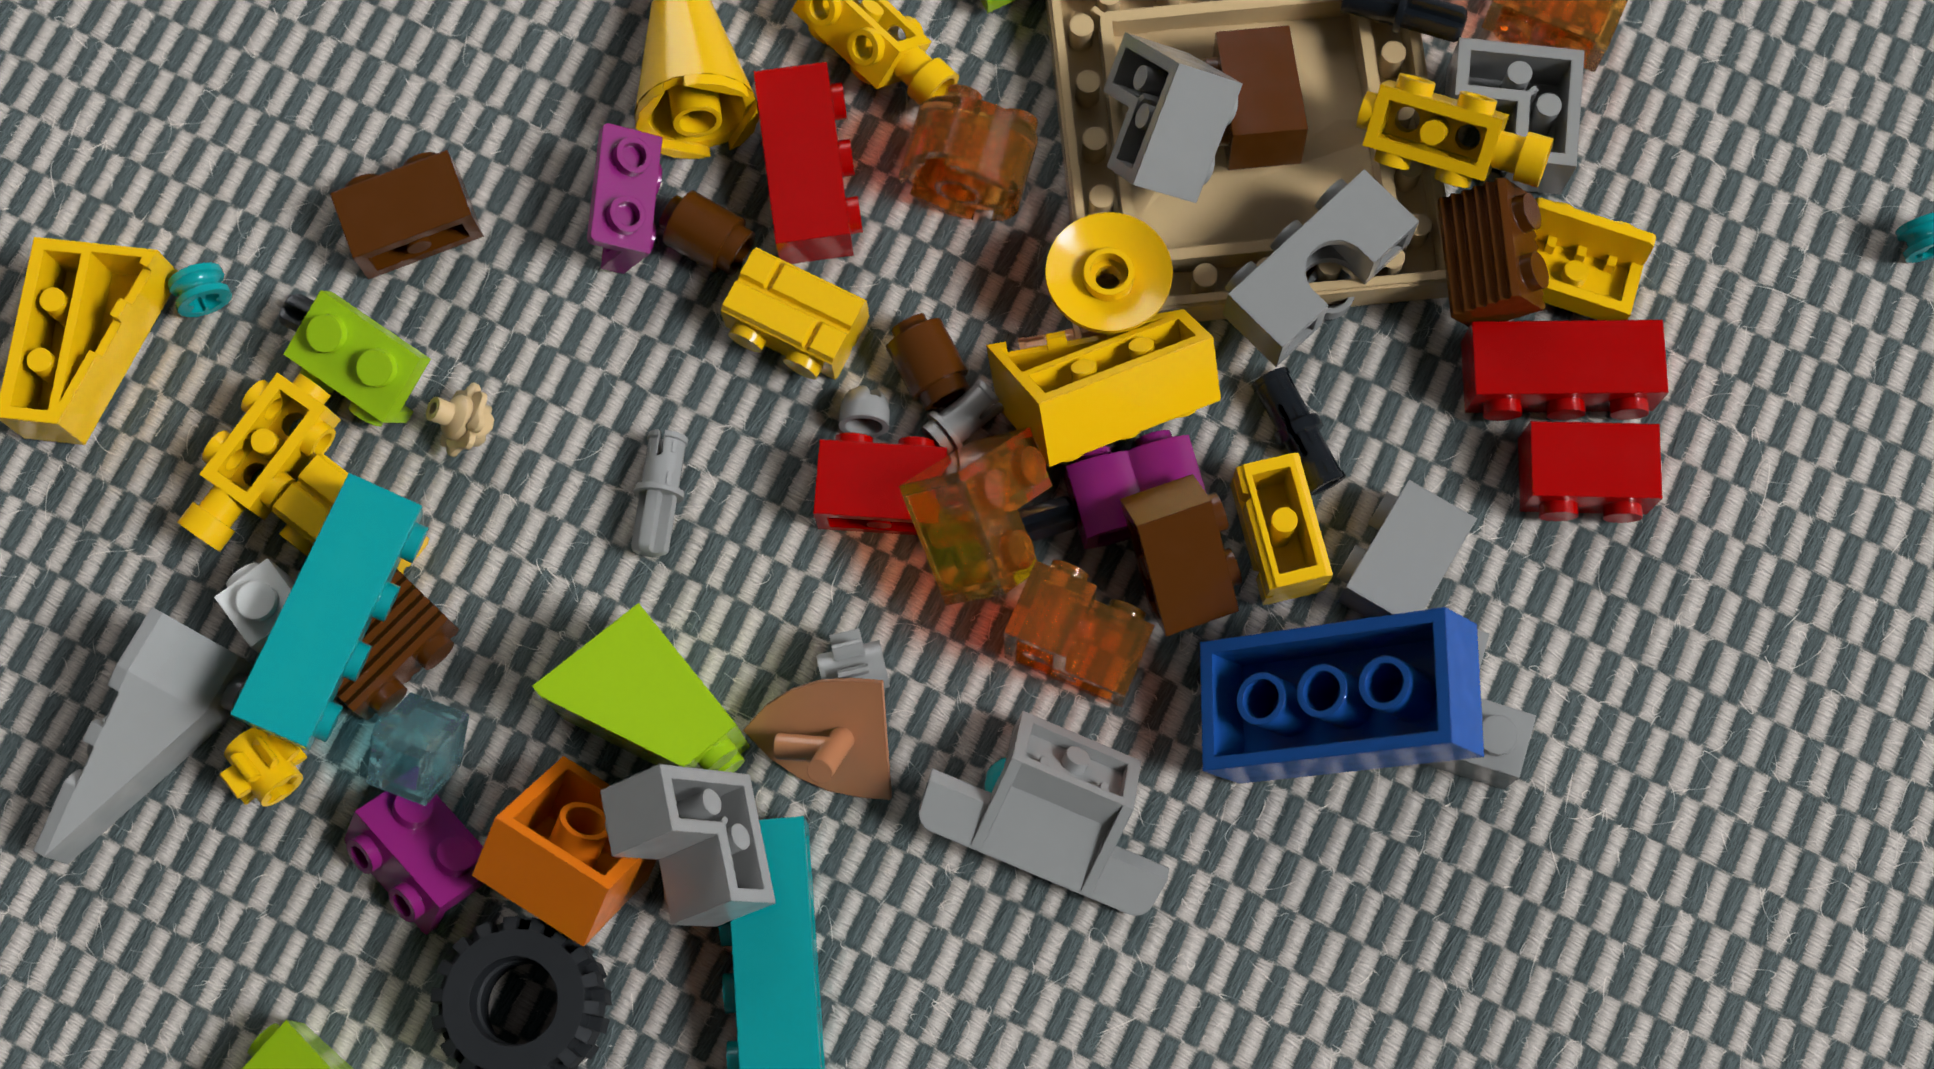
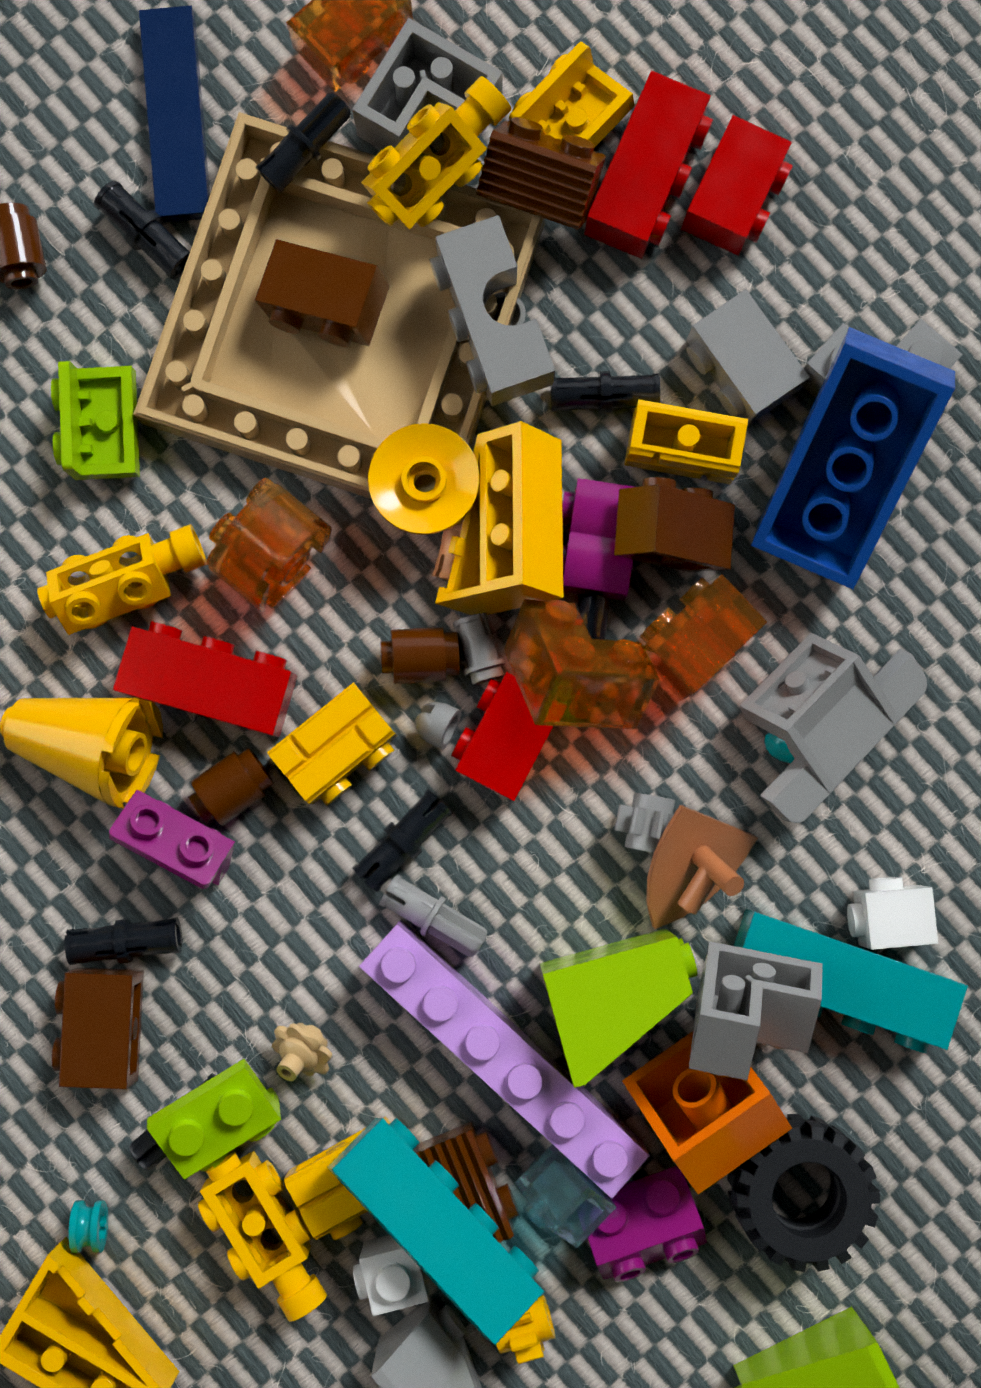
camera: 70 degrees left, 10 degrees up
(504, 200) = (123, 941): none -> black pin
(539, 623) = (505, 1058): none -> lavender brick
(726, 429) = (402, 840): none -> black pin
(867, 977) = (892, 915): none -> white brick
(1172, 117) = (317, 363): light grey brick -> none

